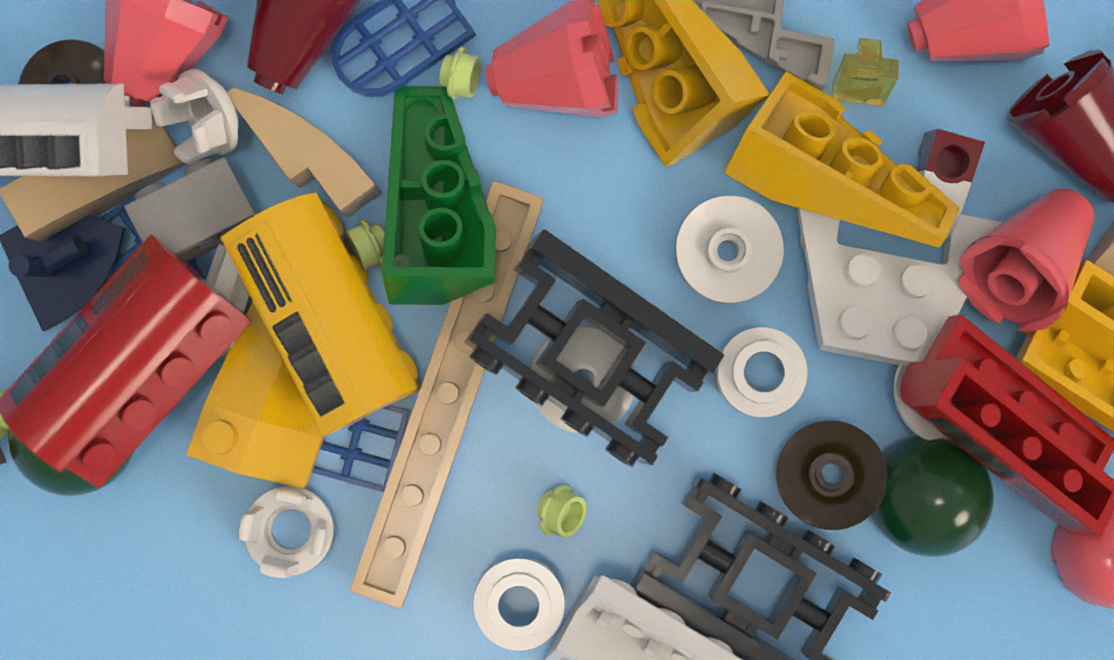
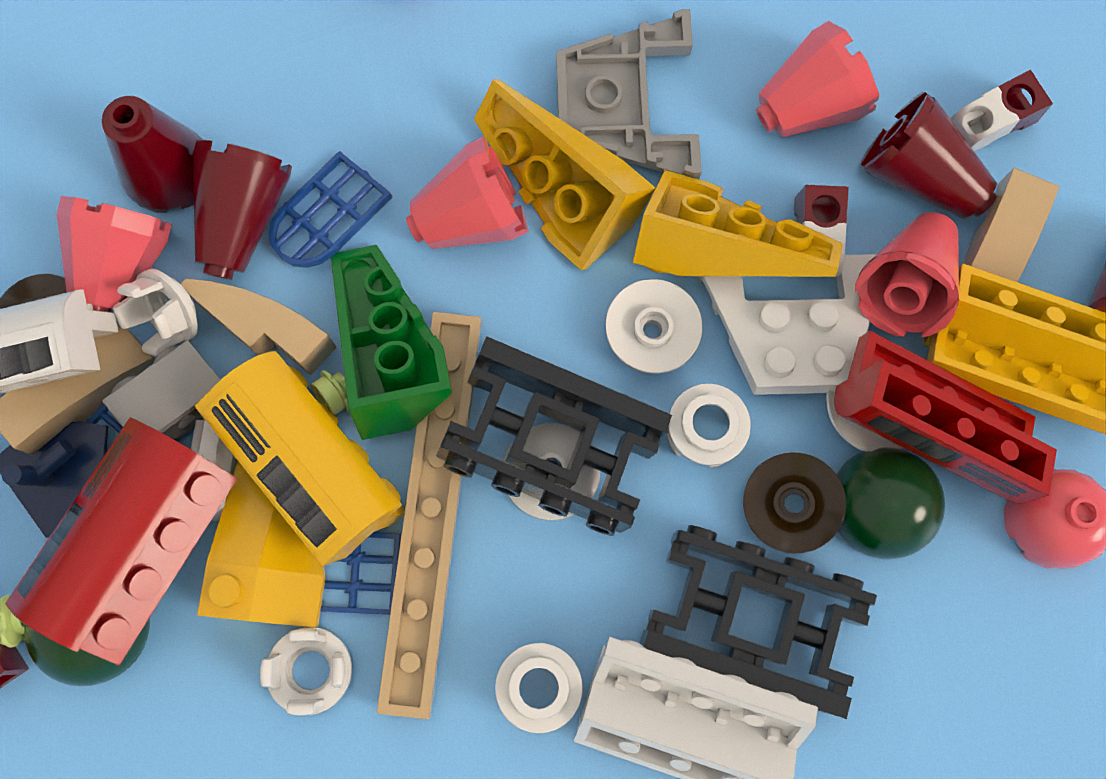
camera: 15 degrees left, 10 degrees down
(460, 74) = (385, 230): yellowish green plate -> none
(561, 511) = (559, 593): yellowish green plate -> none
(865, 75) = (733, 158): clear yellow tile -> none

